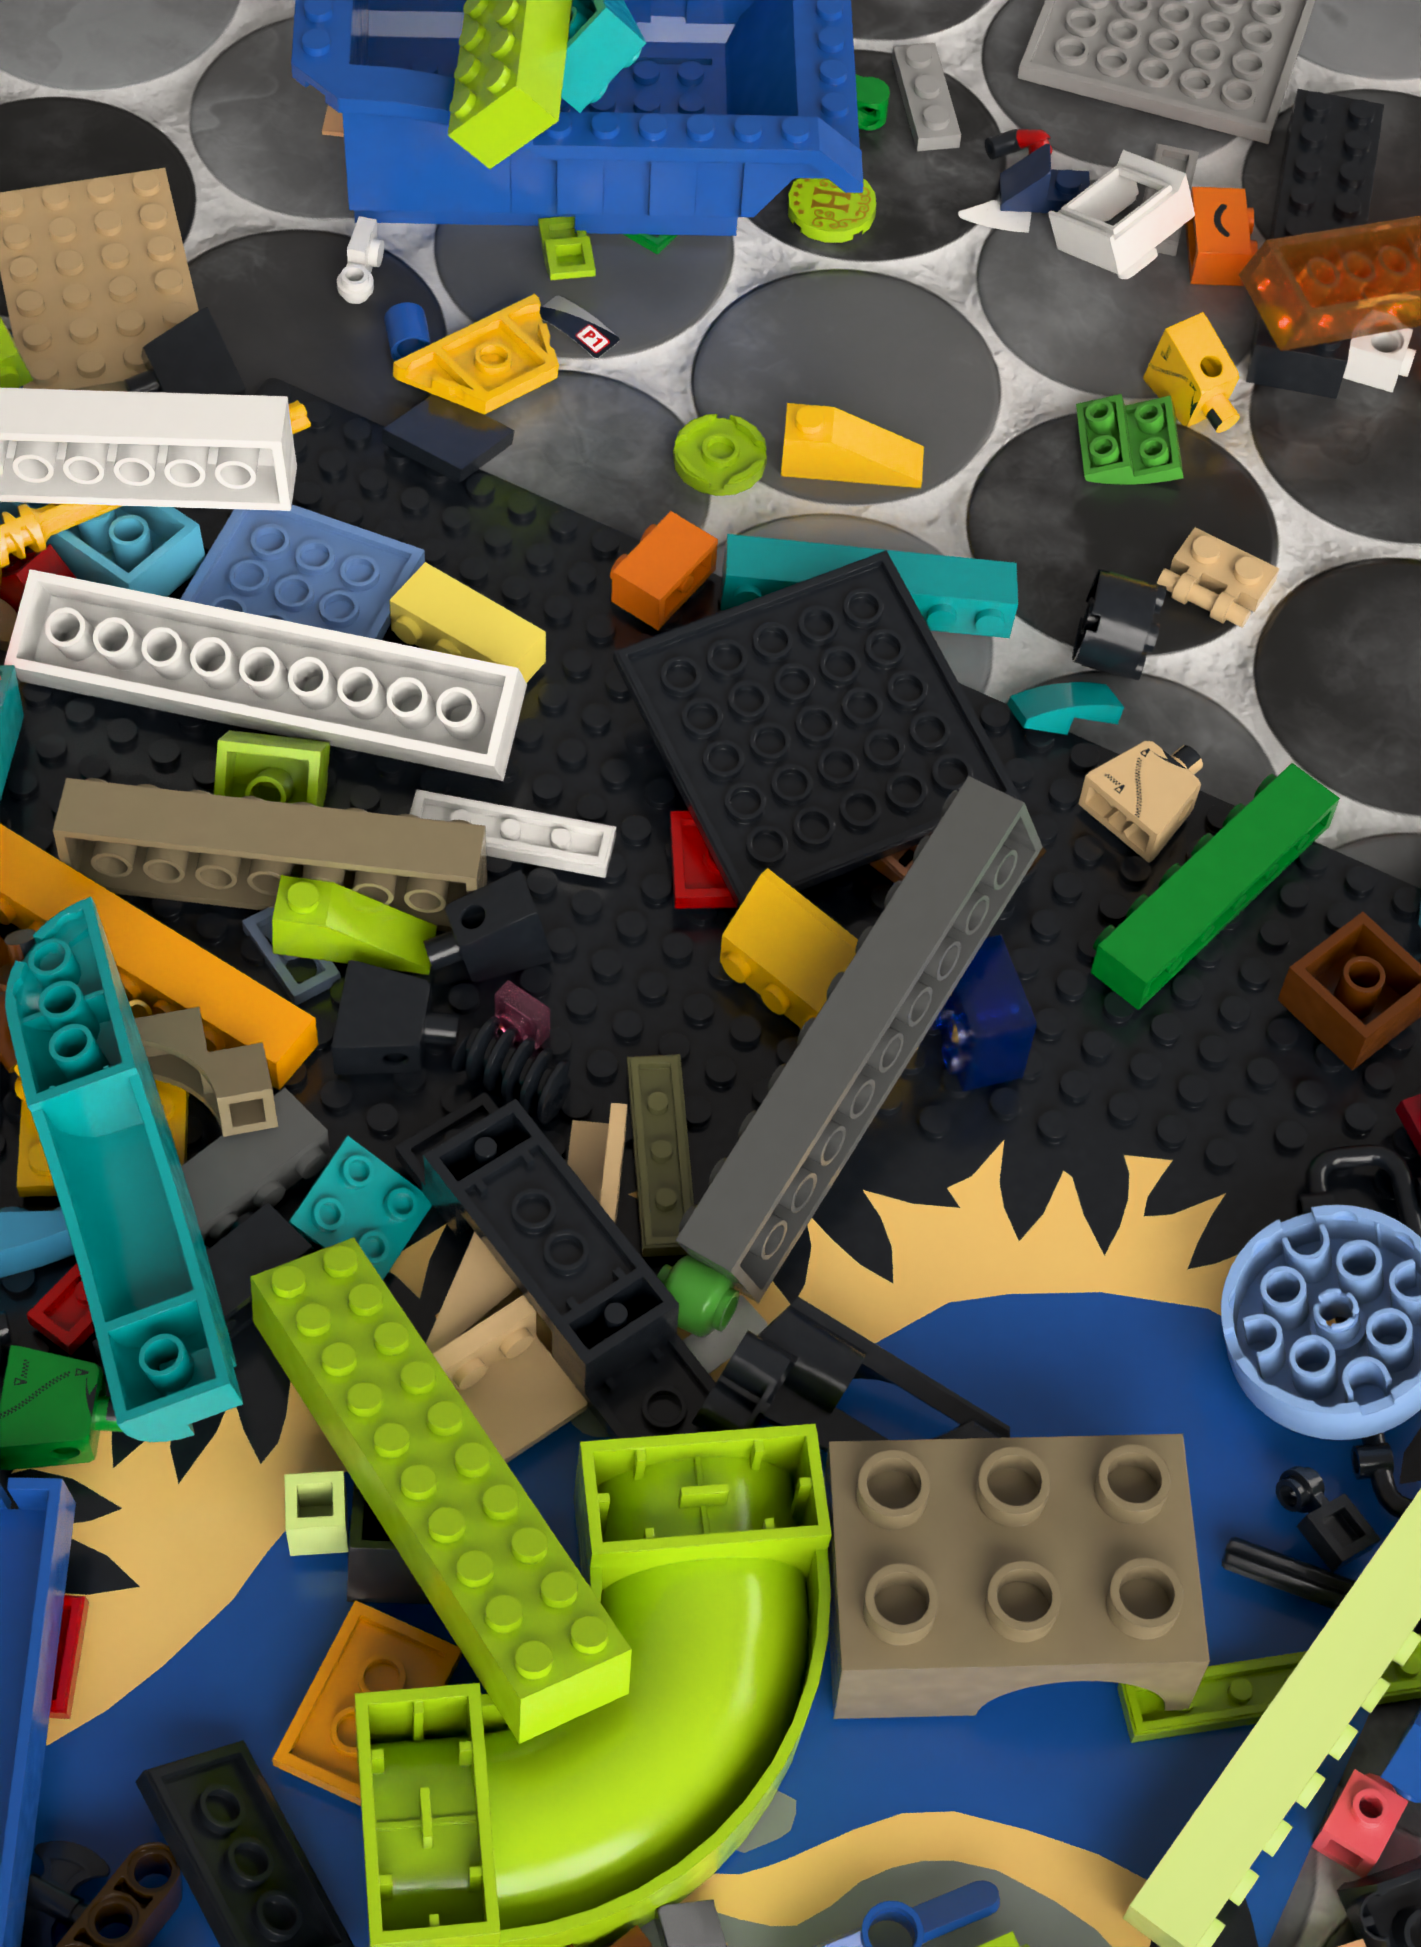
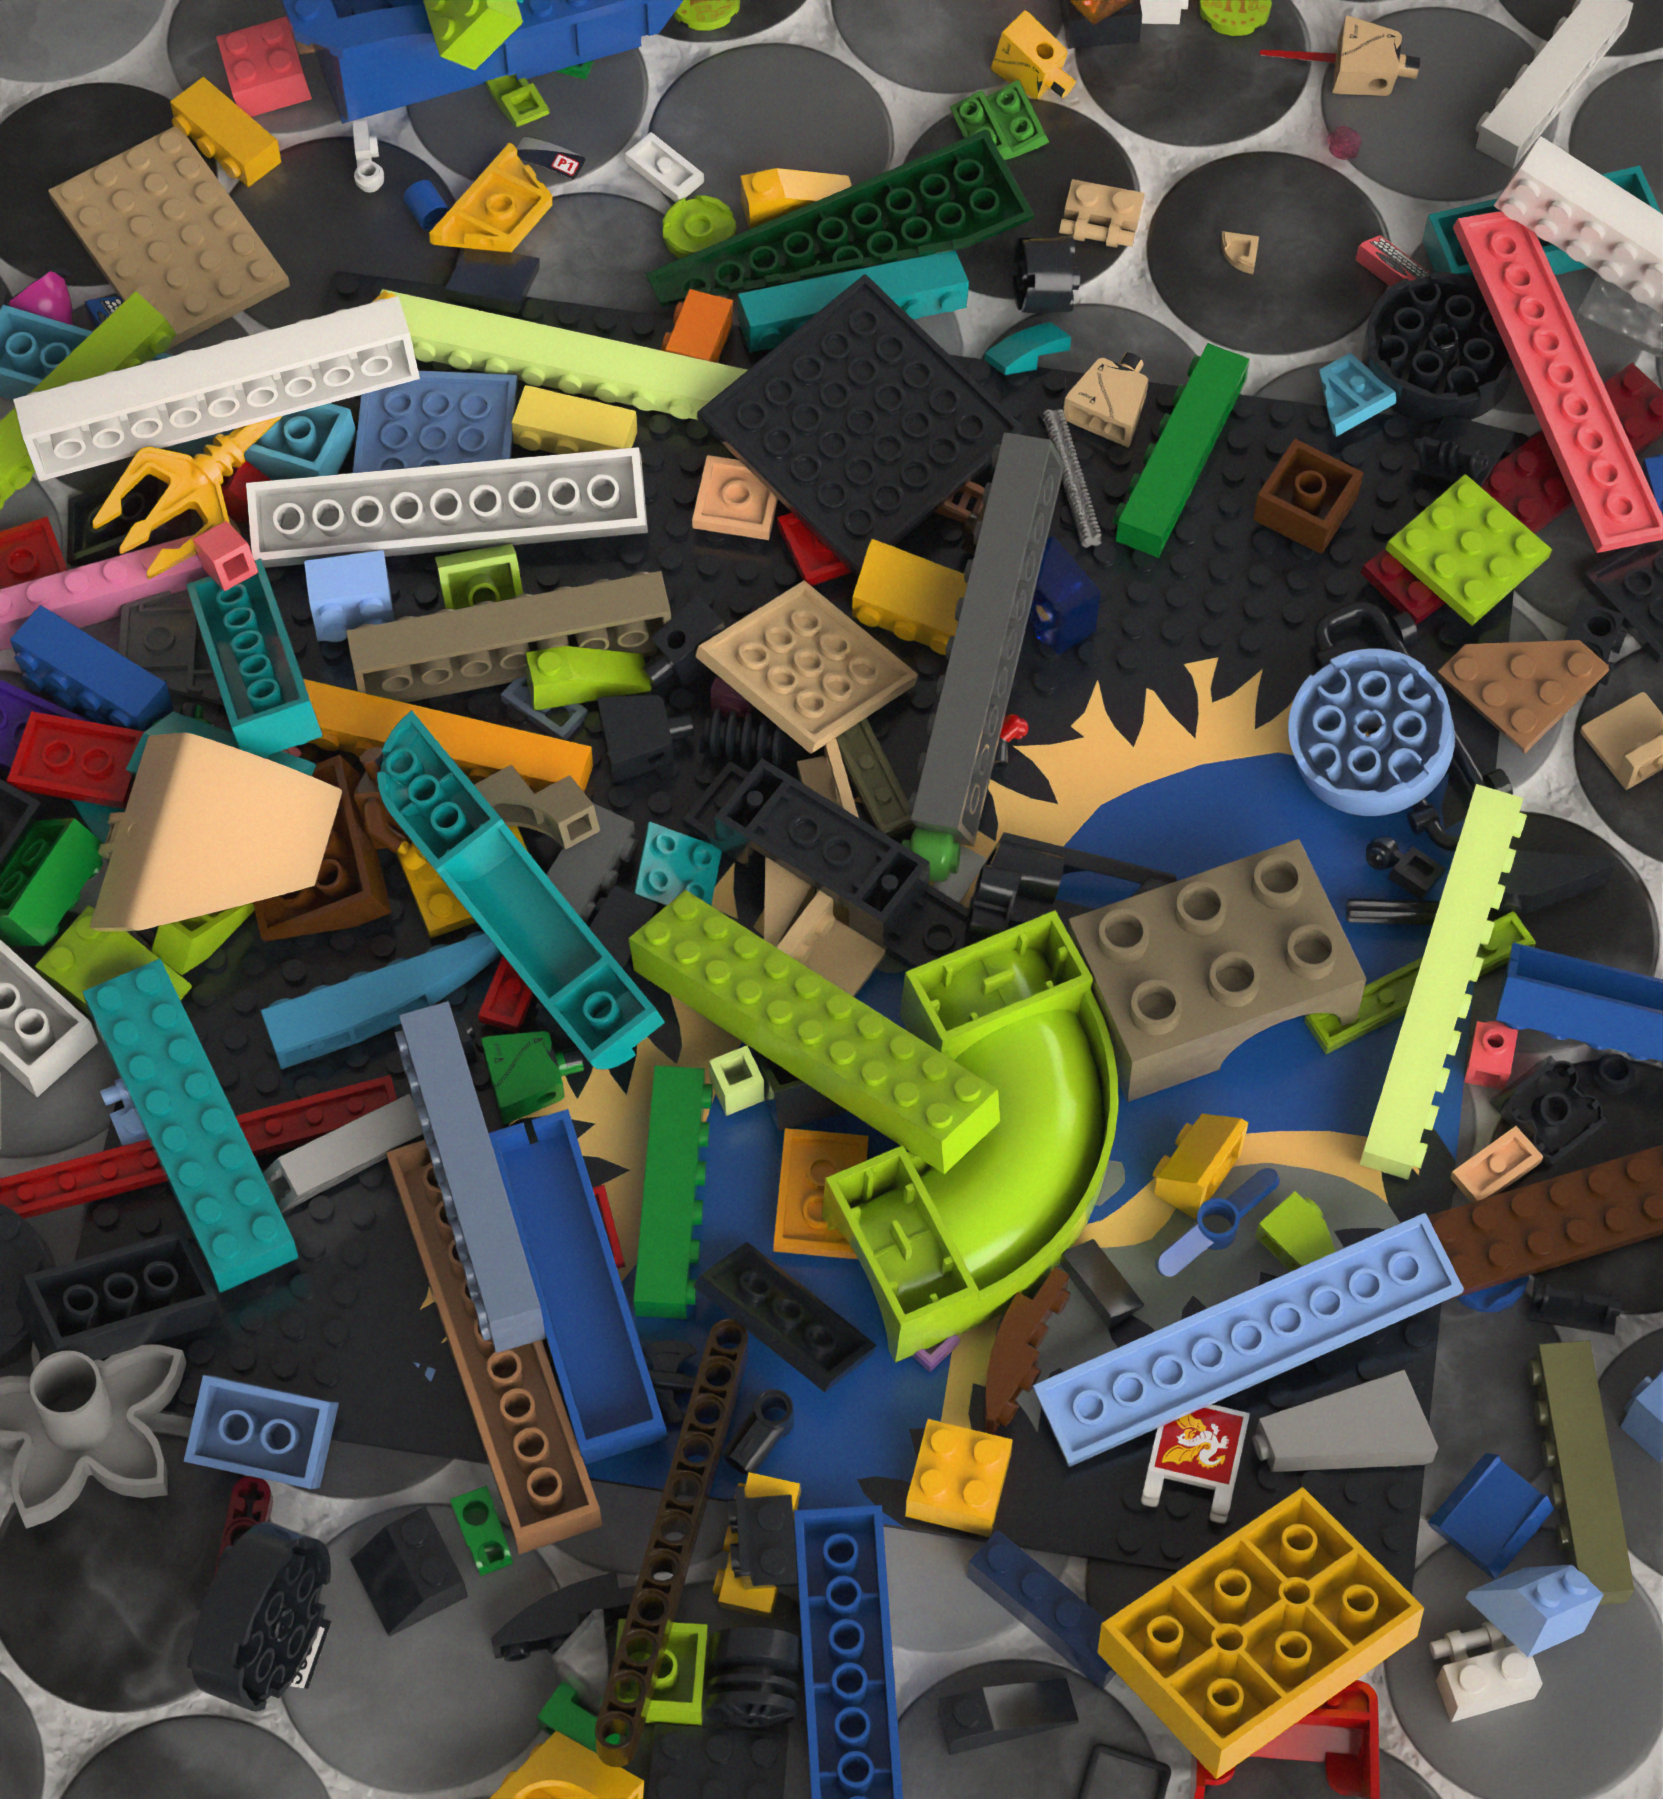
camera: 15 degrees left, 5 degrees up
(101, 736) = (348, 593): none -> light blue brick
(168, 1639) = (670, 1192): none -> green brick
(188, 361) = (275, 286): black torso -> none
(212, 190) = (225, 132): none -> yellow brick
(285, 135) = (264, 67): none -> coral brick
(476, 541) = (563, 358): none -> yellowish green brick
(527, 834) = (679, 566): white tile -> none
(624, 776) = (733, 500): none -> light nougat plate
(628, 1004) = (807, 666): none -> tan plate
(705, 373) = (664, 167): none -> white plate
(861, 1164) = (1012, 728): none -> red arm
(897, 1841) = (1200, 1162): none -> yellow slope
(973, 502) = (899, 215): none -> dark green wedge
(1062, 878) = (1072, 478): none -> light grey axle
(1376, 671) = (1240, 250): none -> tan tile

